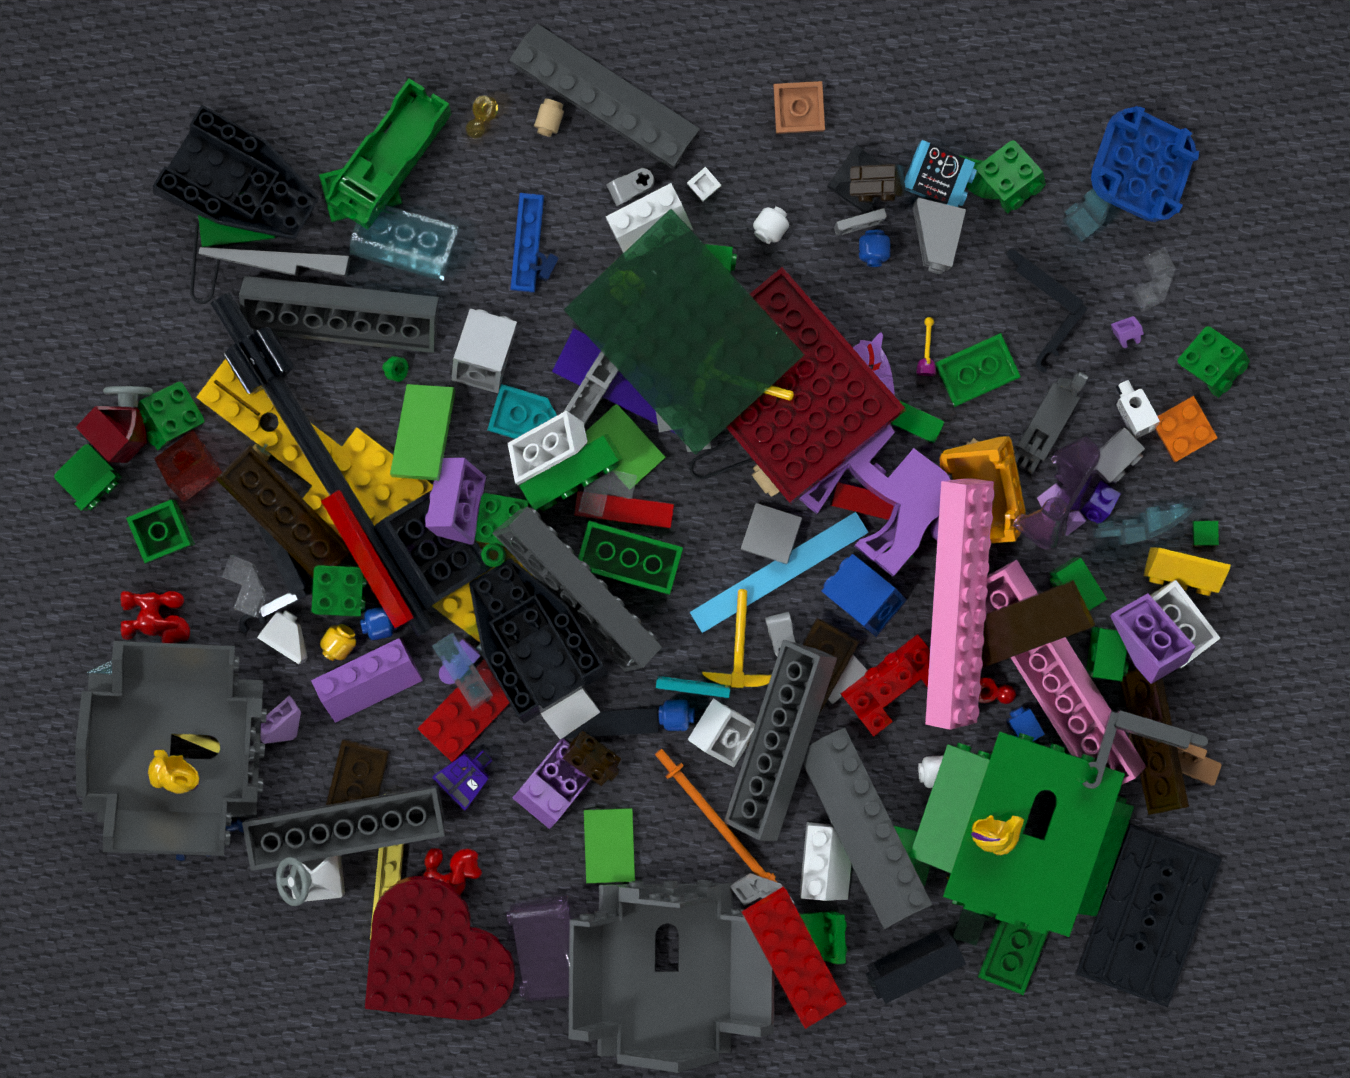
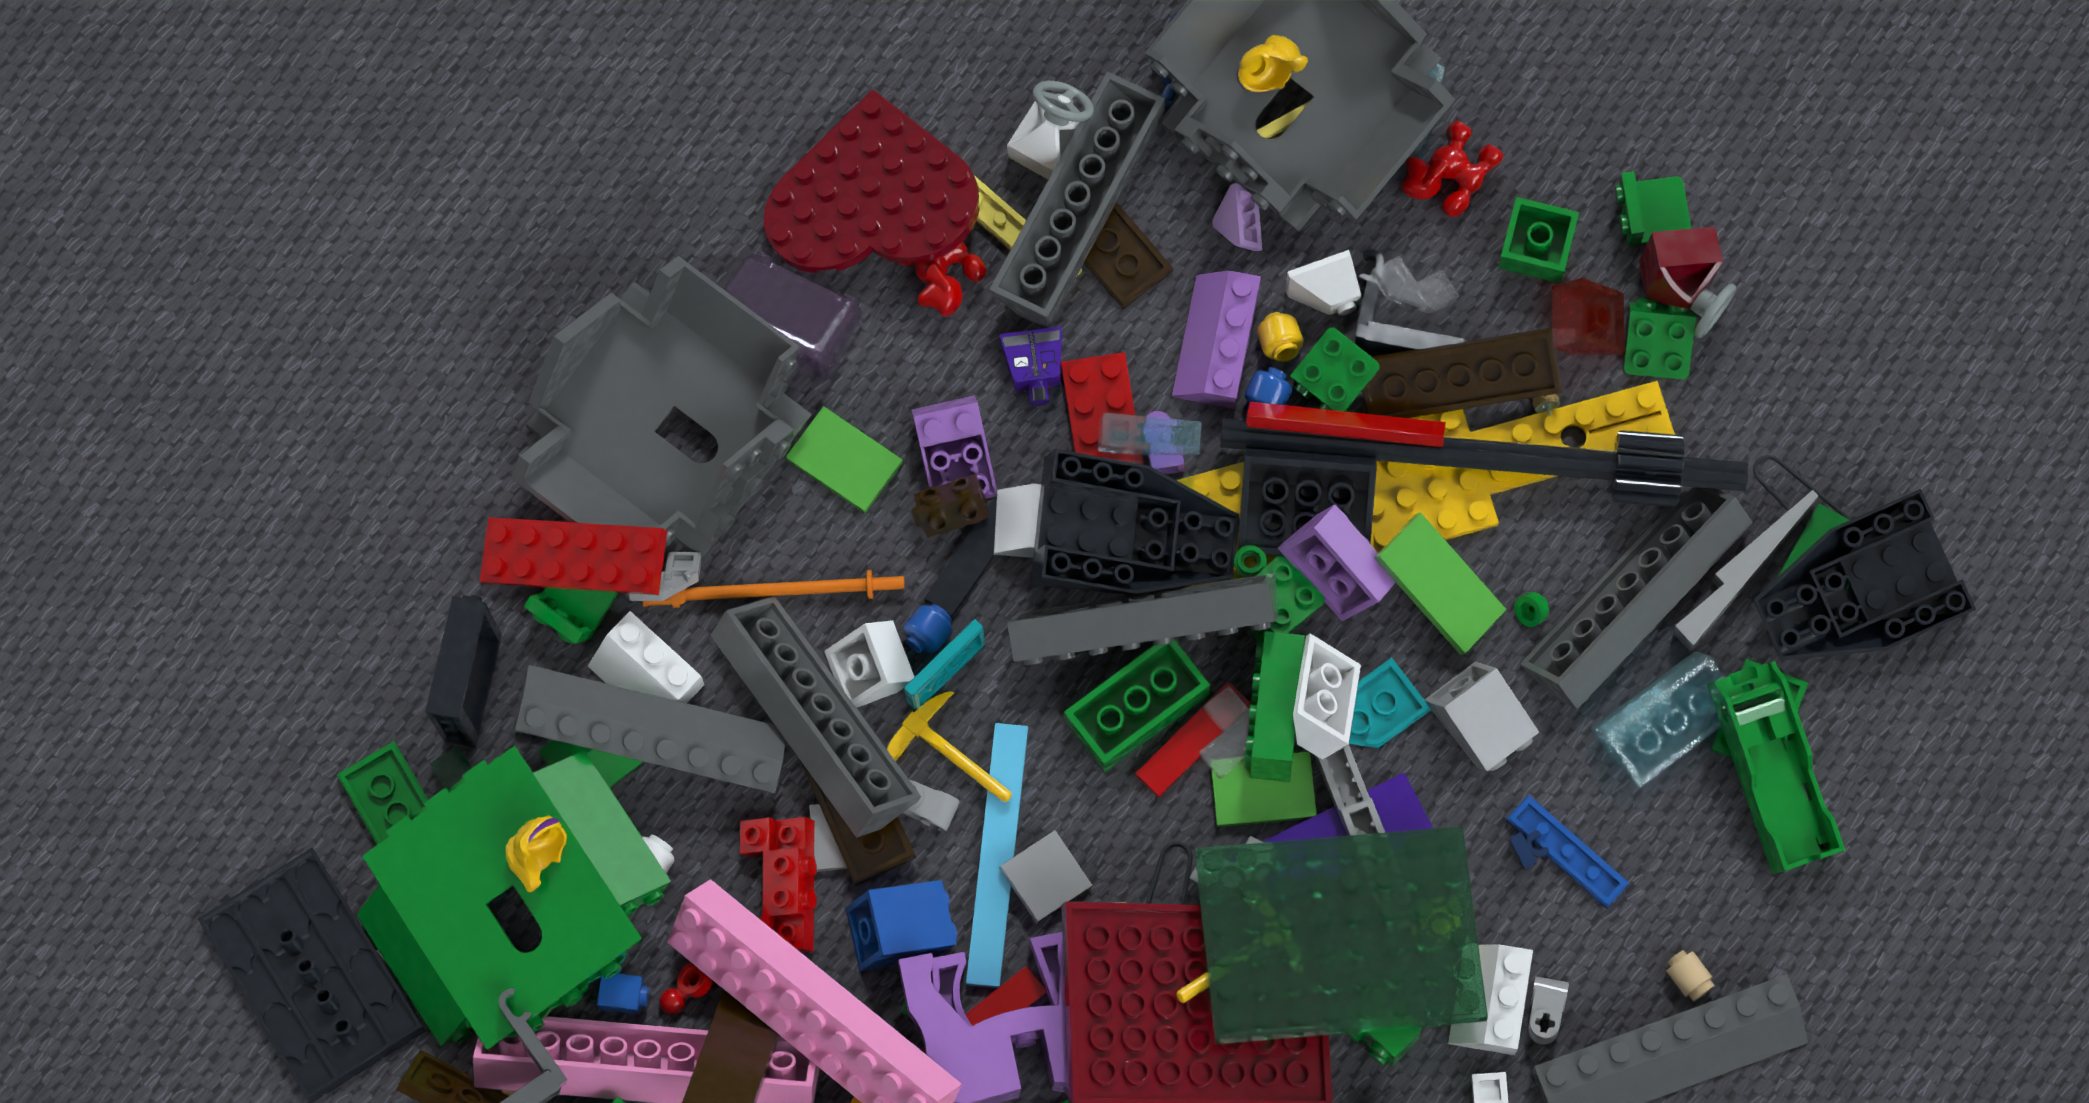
camera: 135 degrees right, 15 degrees down
(475, 127) = (1751, 911): clear yellow plate -> none

